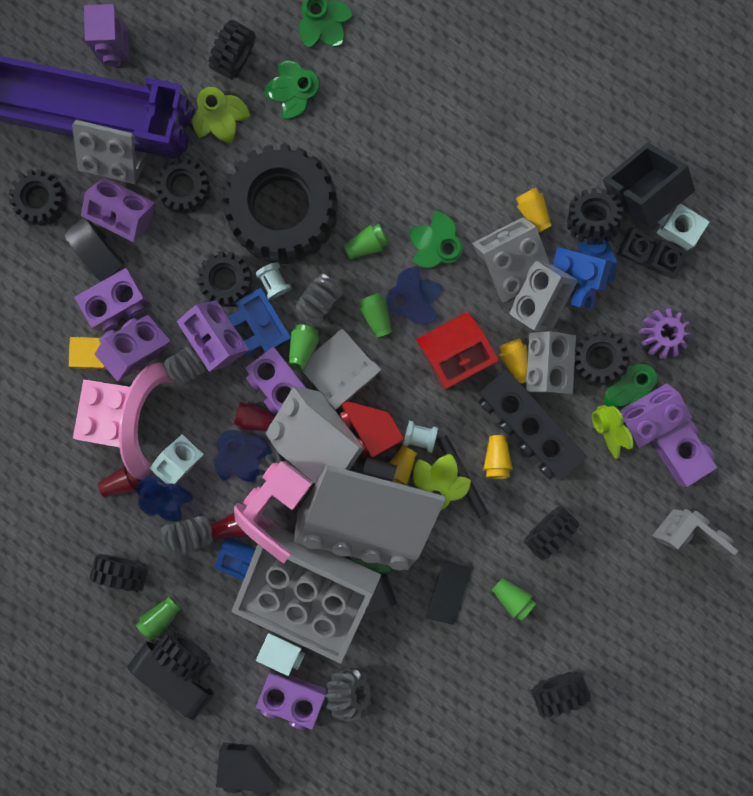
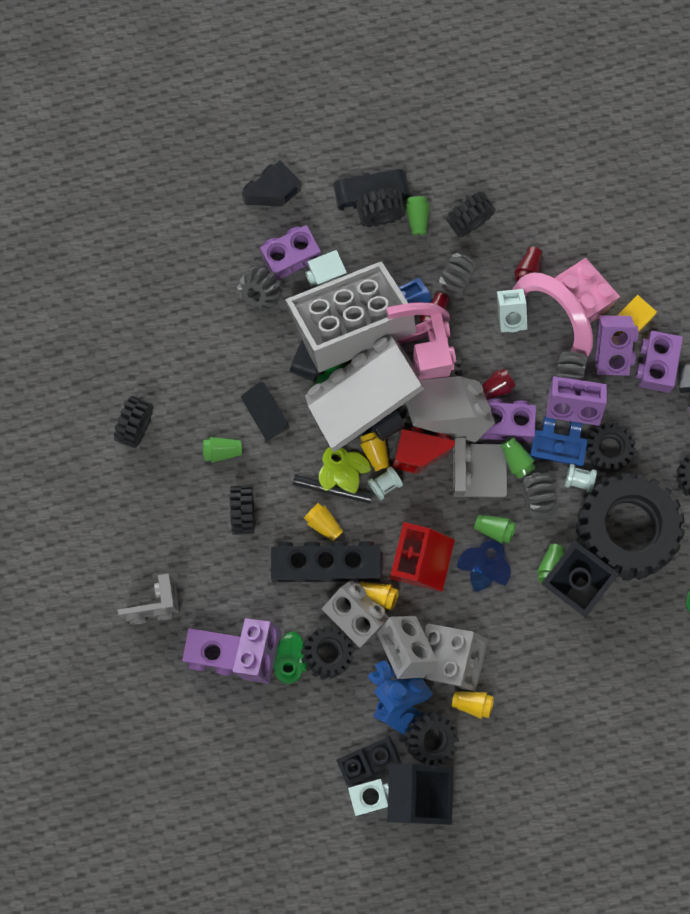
camera: 135 degrees right, 10 degrees down
(162, 498) = (496, 280): clear blue plate -> none
(243, 459) = (475, 355): clear blue plate -> none
(364, 204) = (580, 578): none -> black slope
(432, 239) = (515, 614): green plate -> none
(610, 423) = (280, 617): lime plate -> none
(671, 343) = (299, 706): medium lavender gear -> none

